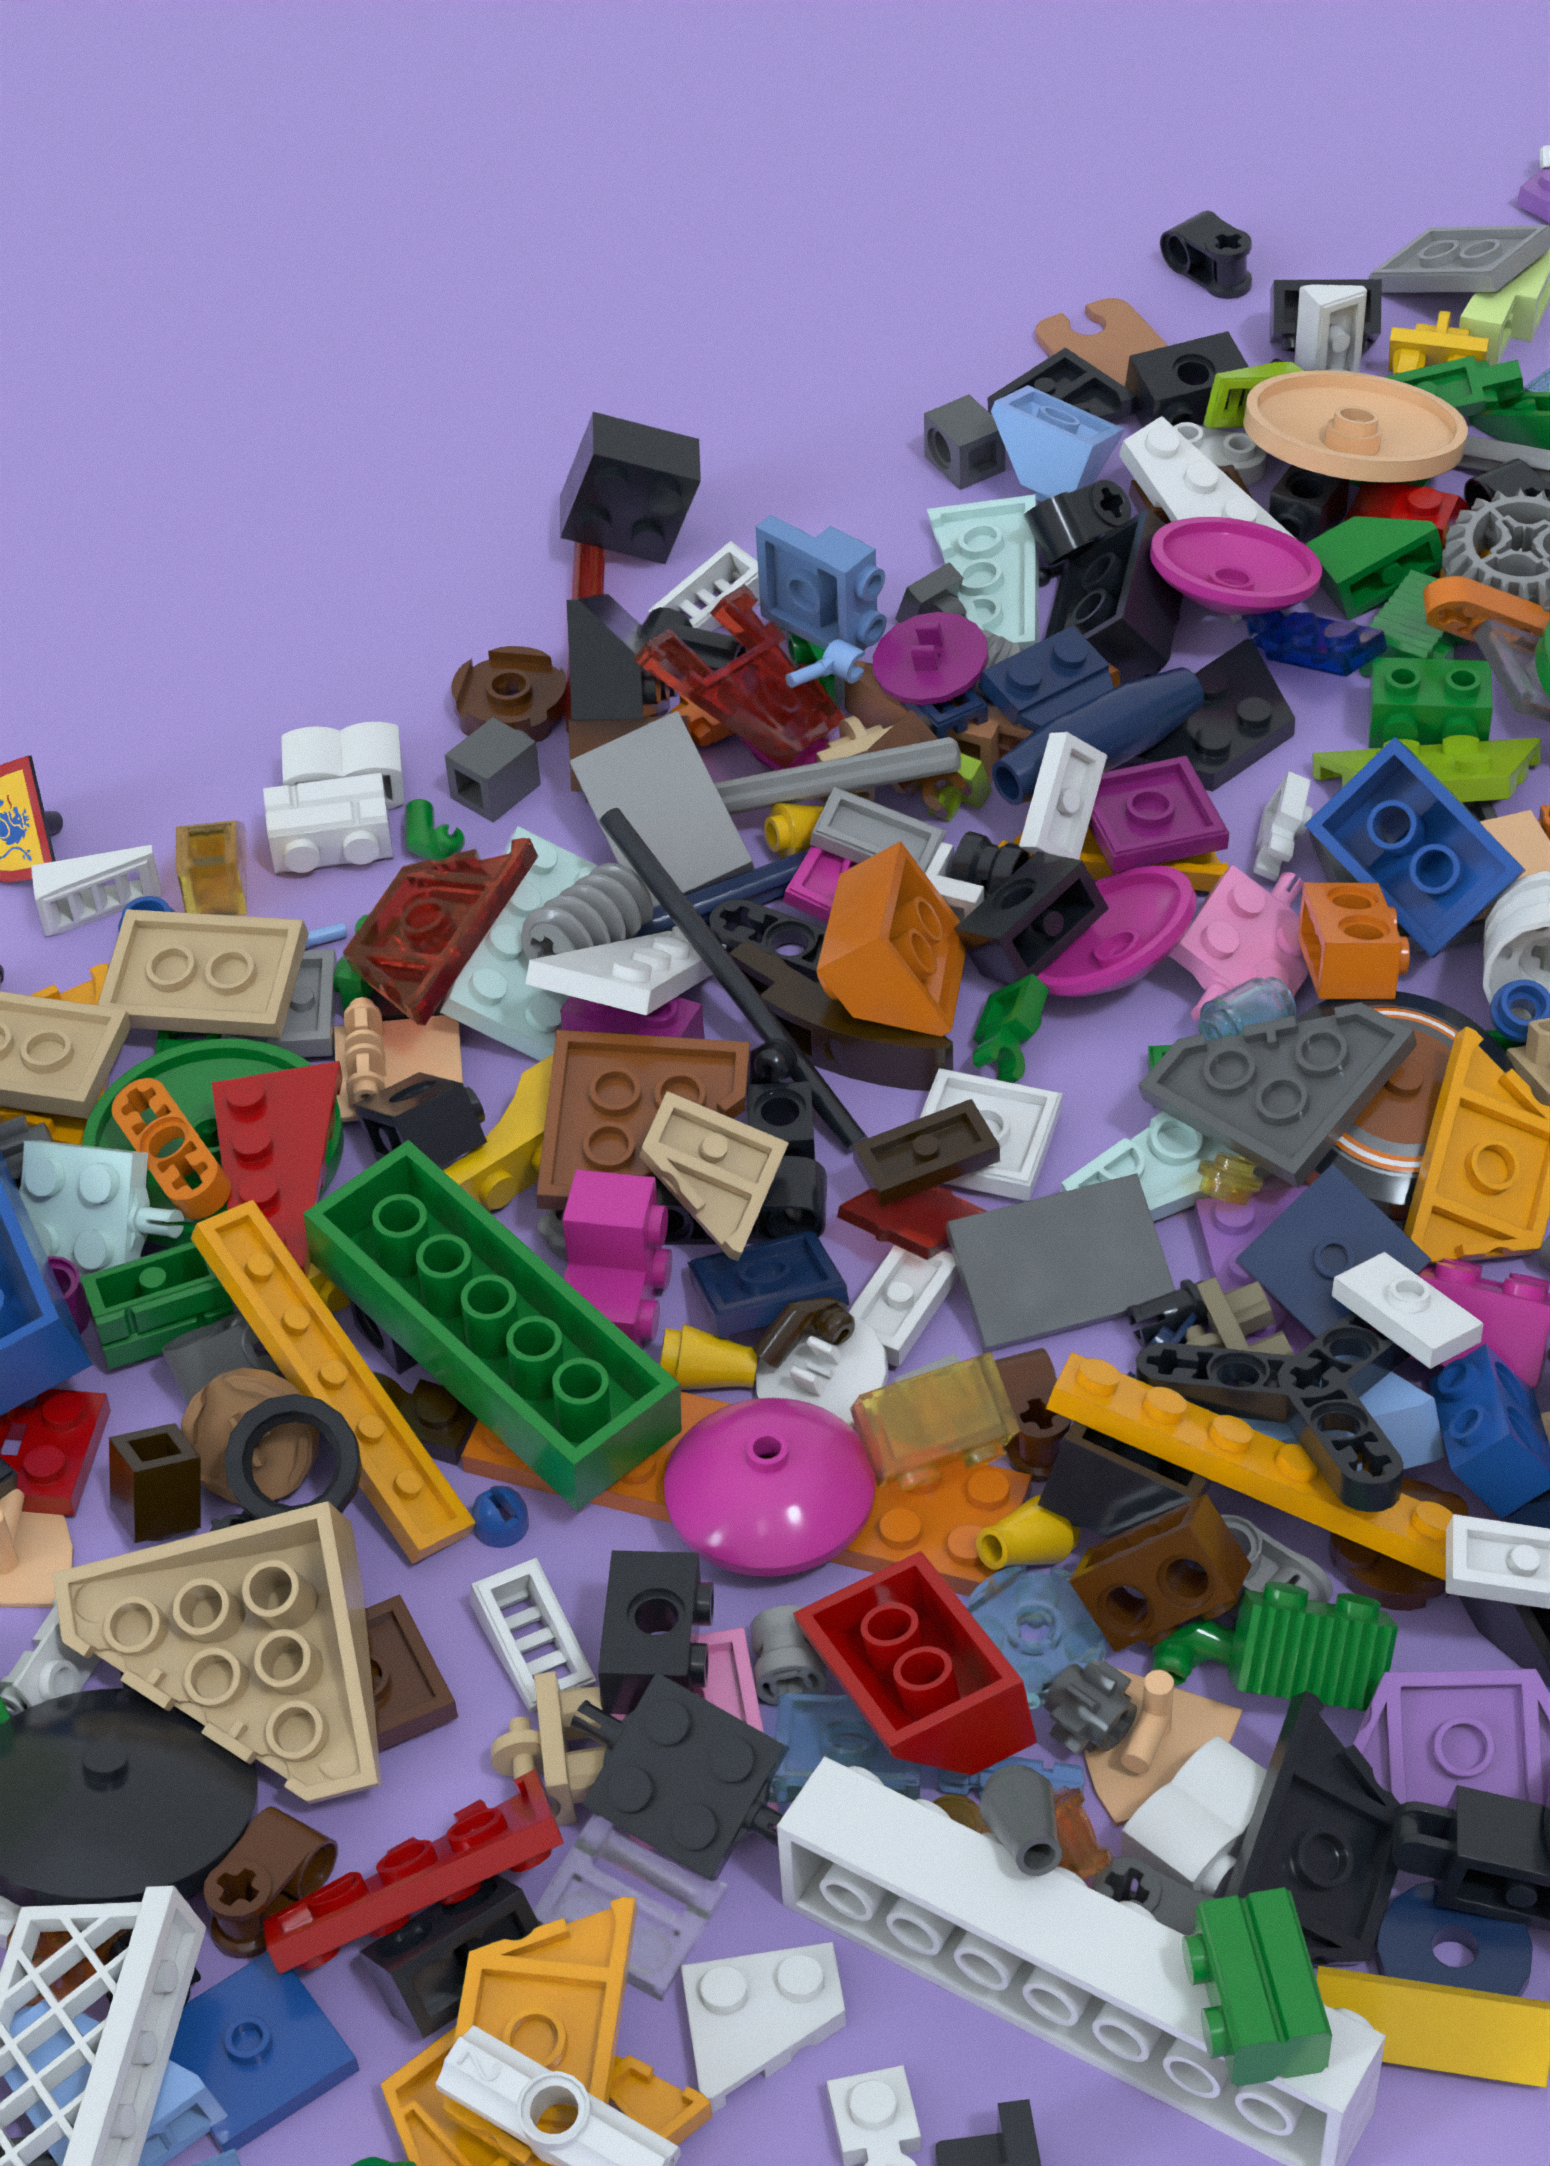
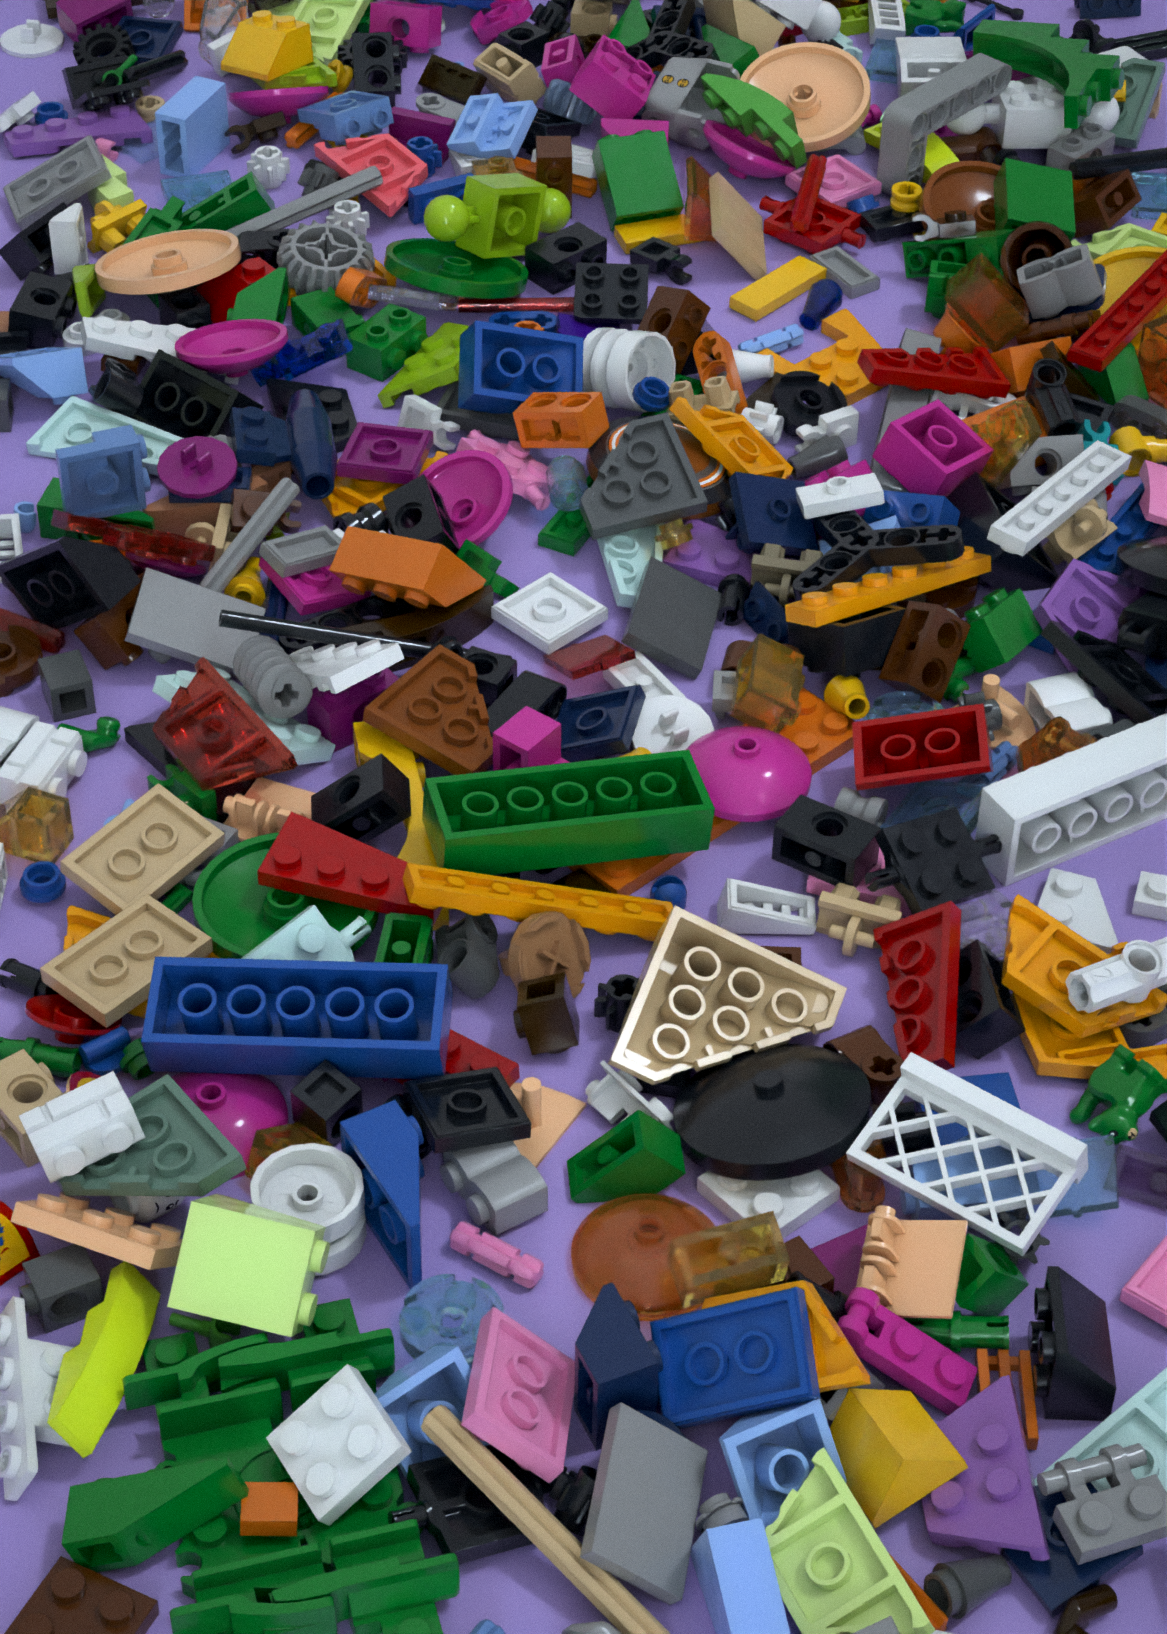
camera: 65 degrees left, 5 degrees down
(191, 1156) = (265, 893): orange beam -> none
(287, 1410) = (624, 913): black tyre -> none
(713, 1167) = (512, 686): tan wing -> none
(803, 1319) = (647, 717): dark brown arm -> none
(837, 660) = (155, 504): light blue hand -> none
(926, 1152) = (564, 625): dark brown plate -> none
(1022, 1815) = (1076, 729): dark grey cone -> none
(1063, 797) = (348, 457): white plate -> none

